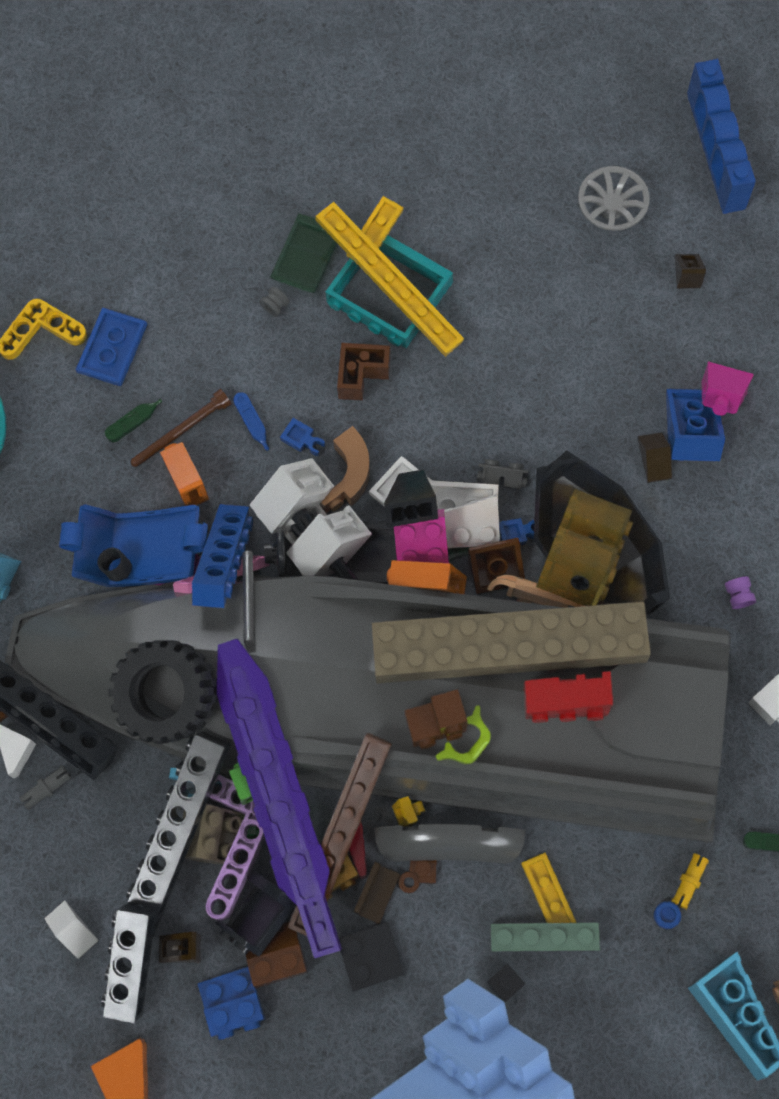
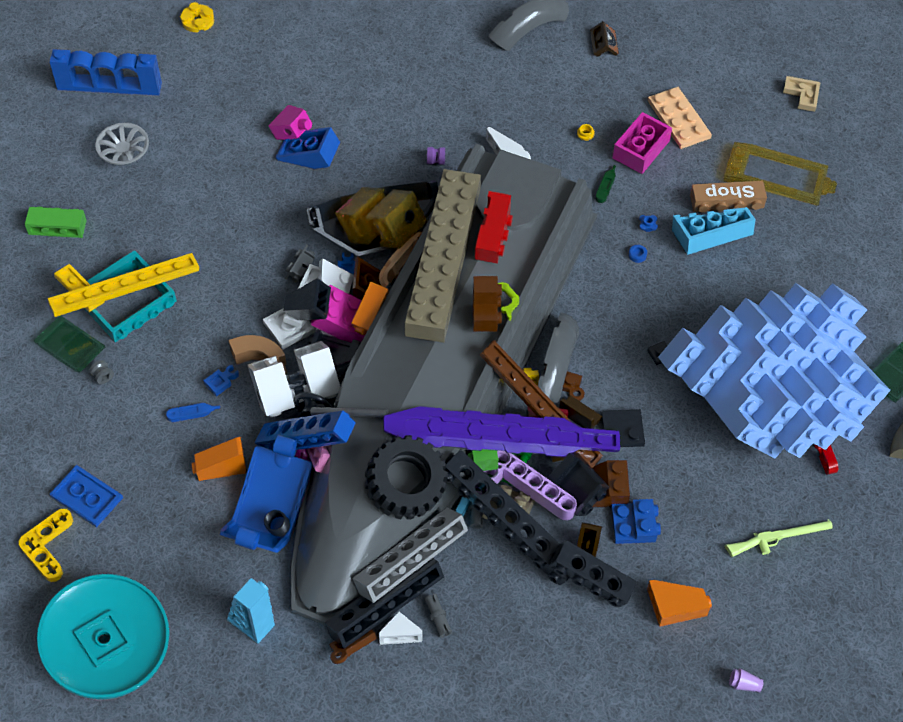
camera: 80 degrees left, 15 degrees down
(71, 930) = (552, 619): white slope -> none
(100, 731) = (410, 554): none -> light grey brick
(130, 421) = (157, 495): dark green piece -> none
(218, 401) = (167, 428): reddish brown piece -> none
(358, 363) = (182, 328): reddish brown brick -> none
(474, 170) = (55, 222): none -> bright green brick
(545, 937) = (636, 320): sand green plate -> none
(547, 890) = (607, 314): yellow tile -> none
(655, 457) = (322, 175): dark brown slope -> none
(689, 271) = (195, 120): dark brown slope -> none
(690, 881) = (619, 234): yellow pin -> none
(721, 925) = (648, 226): none -> blue plate

